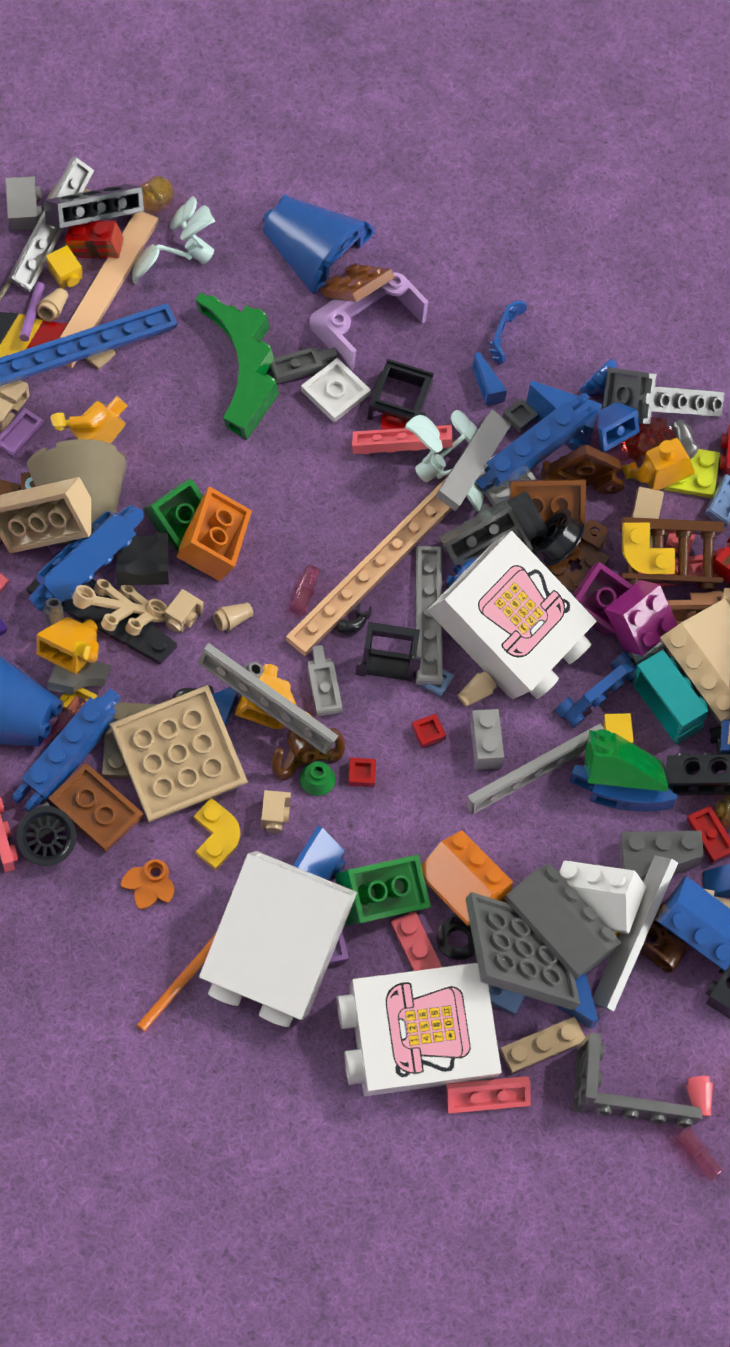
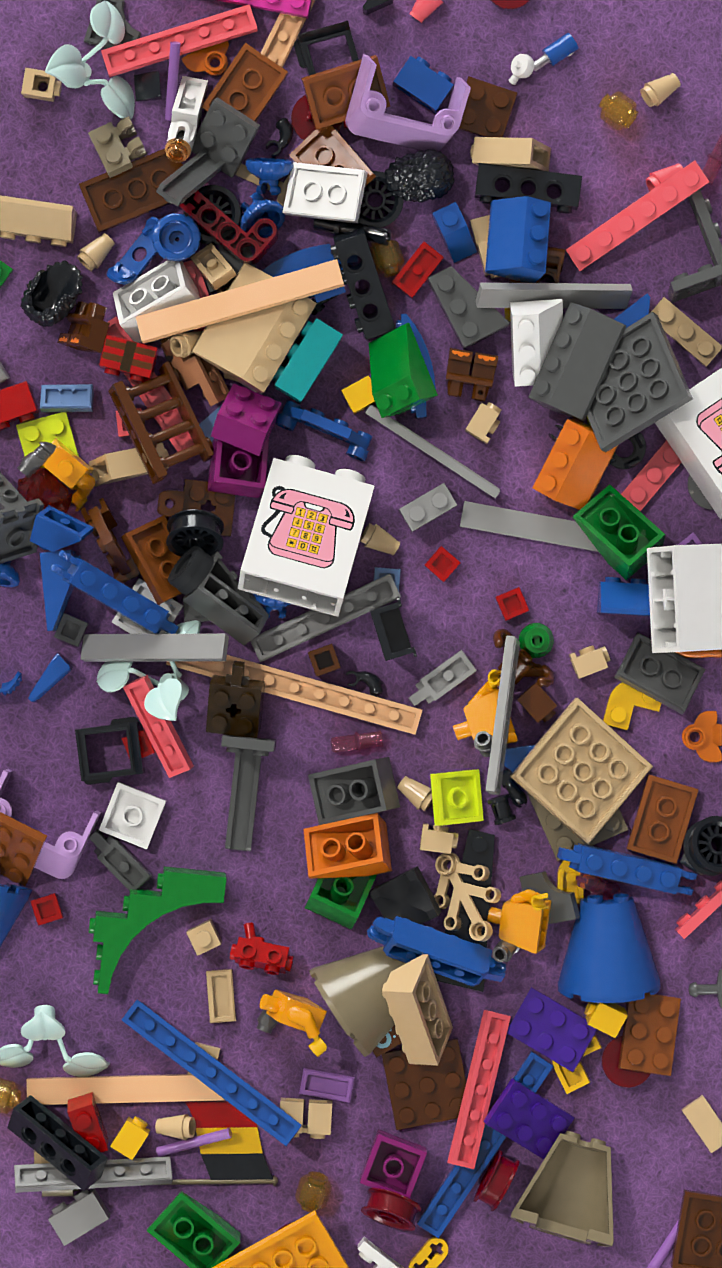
camera: 110 degrees left, 25 degrees up
(143, 388) = (221, 995): none -> tan tile
(167, 424) = (255, 952): none -> red brick
(180, 676) = (501, 809): none -> black bush
(201, 394) = (204, 937): none -> tan brick
(210, 629) = (456, 797): none -> neon yellow plate
(219, 867) = (661, 676): none -> dark grey tile
(258, 748) = (537, 703): none -> reddish brown brick
(262, 568) = (354, 790): none -> dark grey slope
(291, 294) = (47, 909): none -> red plate
(328, 493) = (244, 787): none -> dark grey bracket
(390, 503) = (237, 689): none -> dark brown hinge
(392, 591) = (324, 660): none -> reddish brown brick
(431, 814) = (524, 525): none -> light grey tile
(542, 823) = (484, 421): none -> tan brick
(596, 836) = (481, 377): none -> reddish brown hips
(640, 555) = (185, 444): yellow plate -> none
(677, 1049) = (637, 215): none -> coral plate

